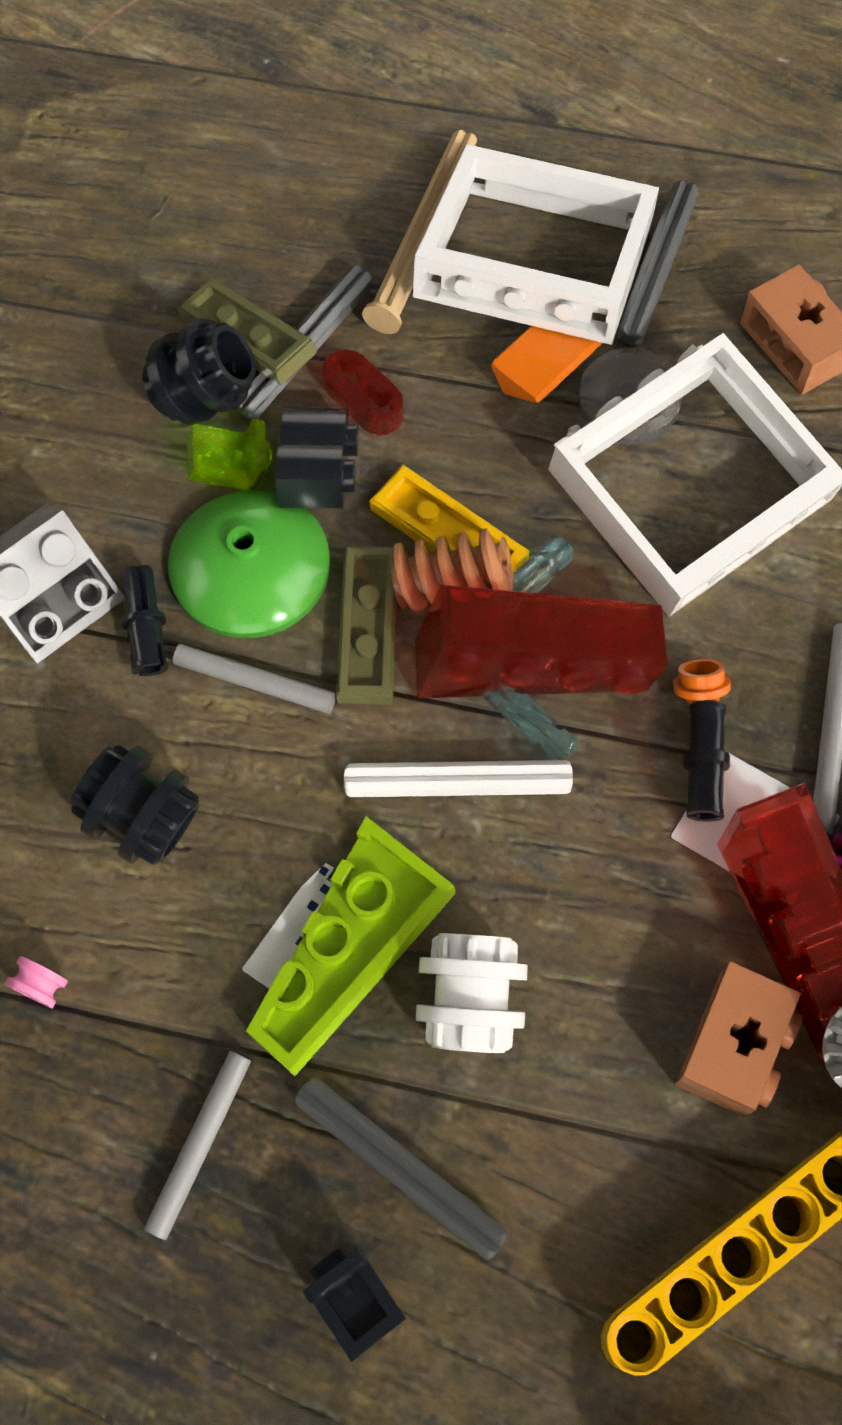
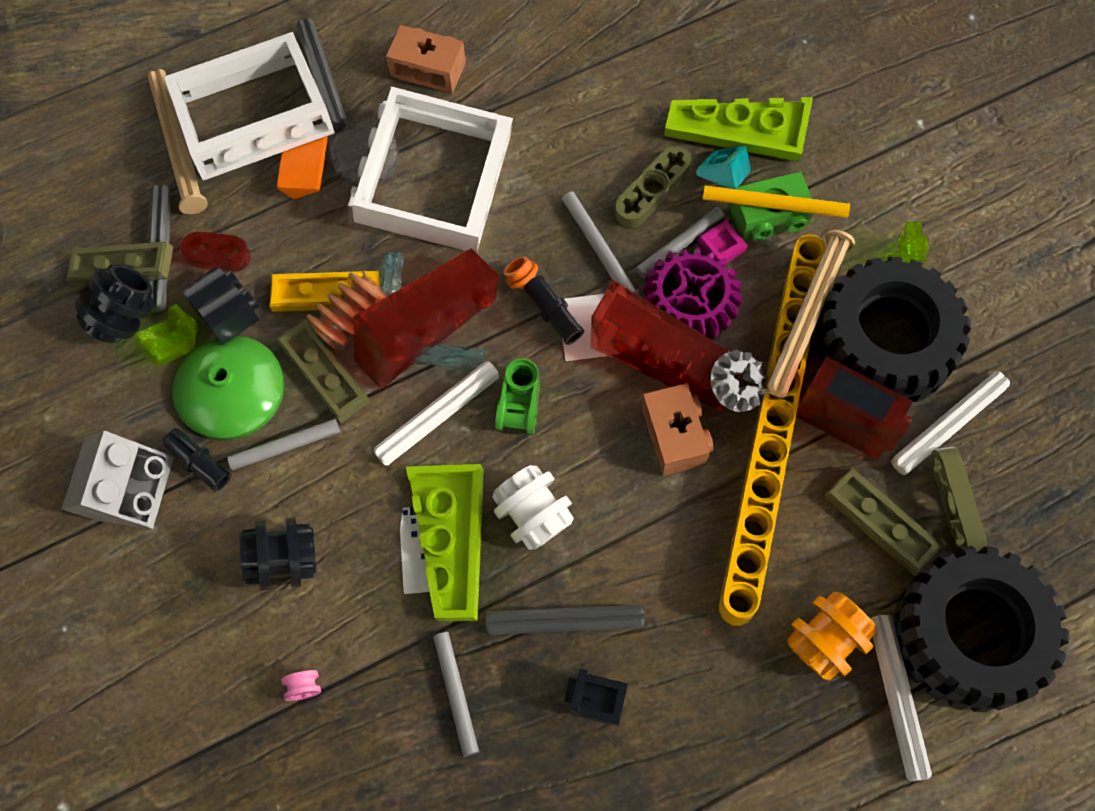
camera: 40 degrees left, 0 degrees up
(561, 848) = (519, 404): none -> bright green piece

